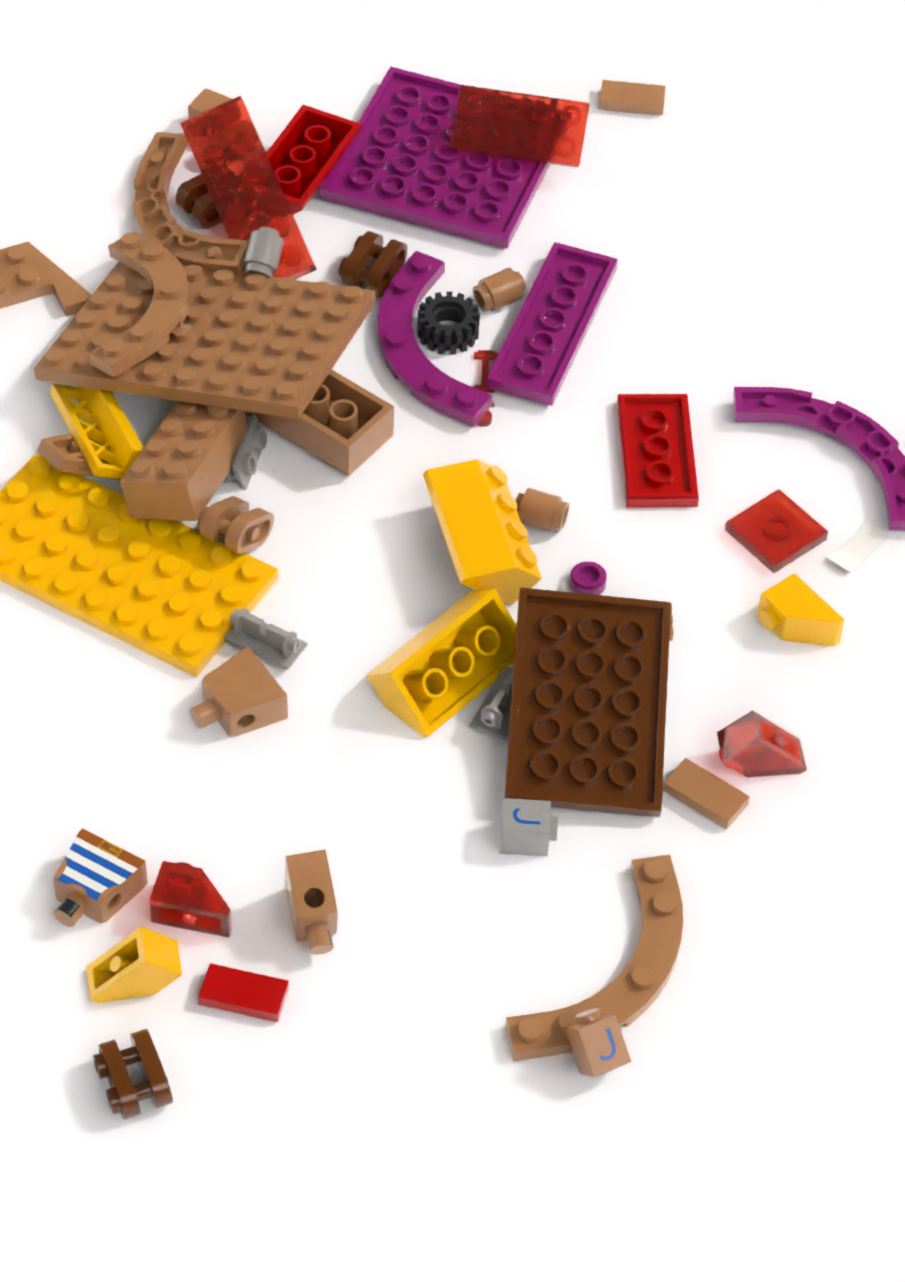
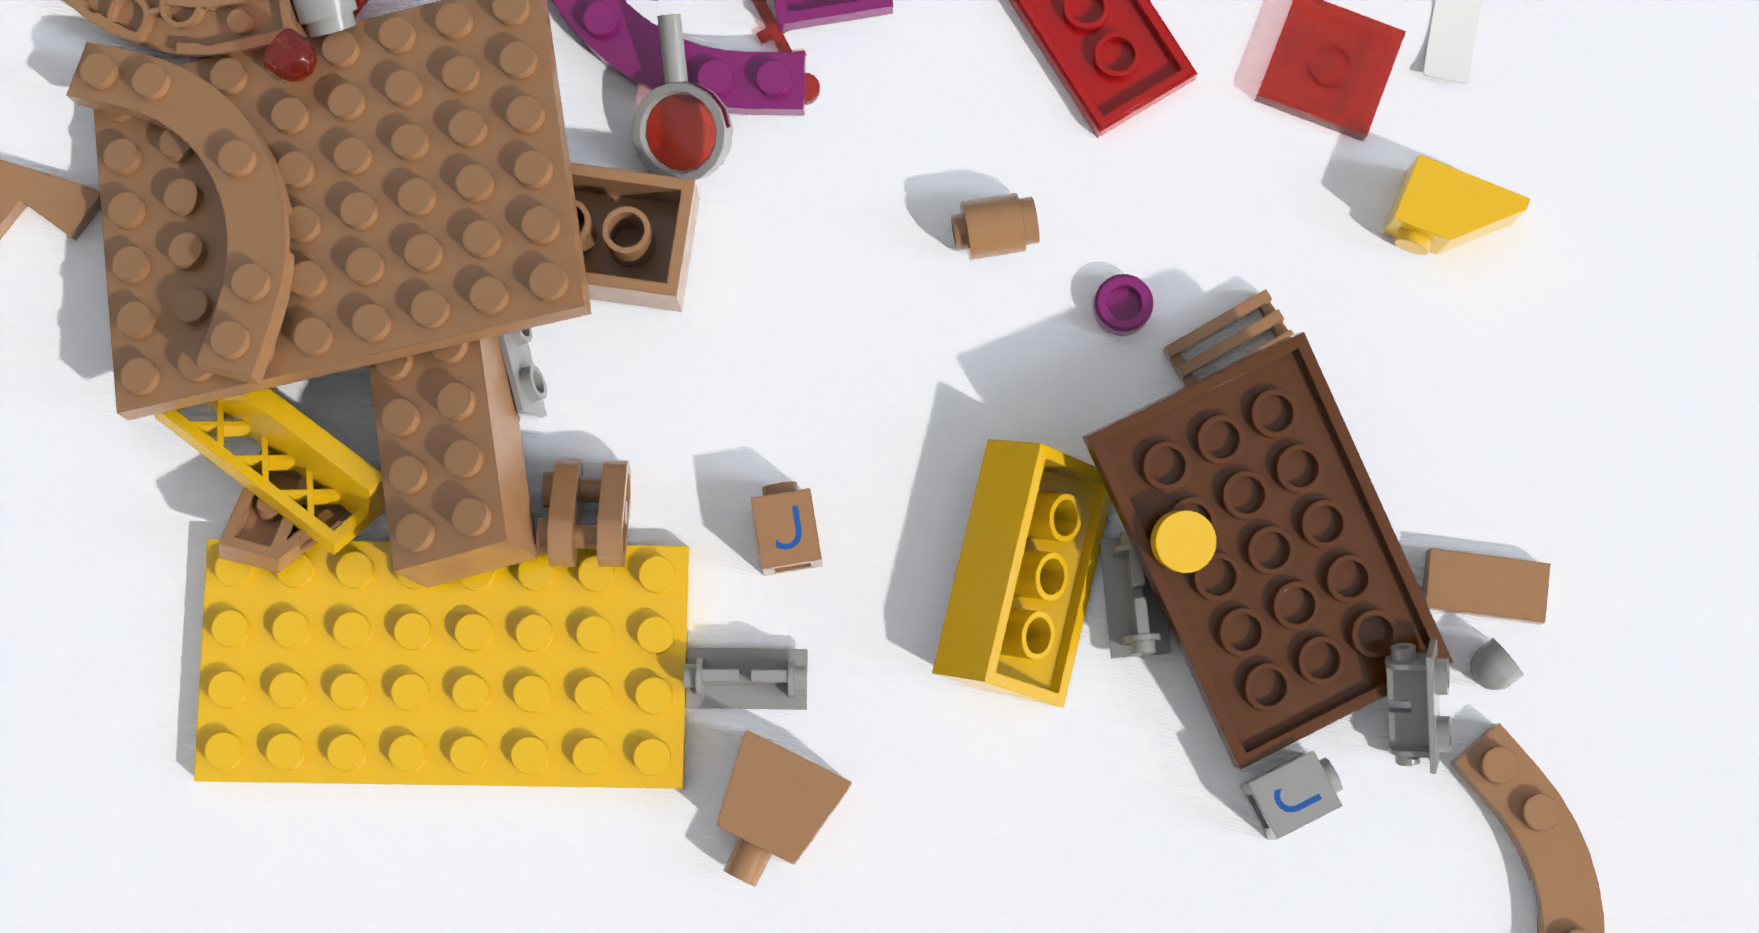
camera: 30 degrees left, 30 degrees up
(228, 267) = (290, 56): none -> clear red hinge
(334, 584) = (786, 529): none -> medium nougat brick
(410, 390) = (682, 124): none -> piece
(482, 528) = (944, 324): yellow slope -> none
(540, 660) = (1183, 541): none -> yellow tile
(636, 799) = (1419, 729): none -> light grey hinge
(684, 829) = (1494, 667): none -> light grey hinge
(760, 748) = (1524, 479): clear red slope -> none

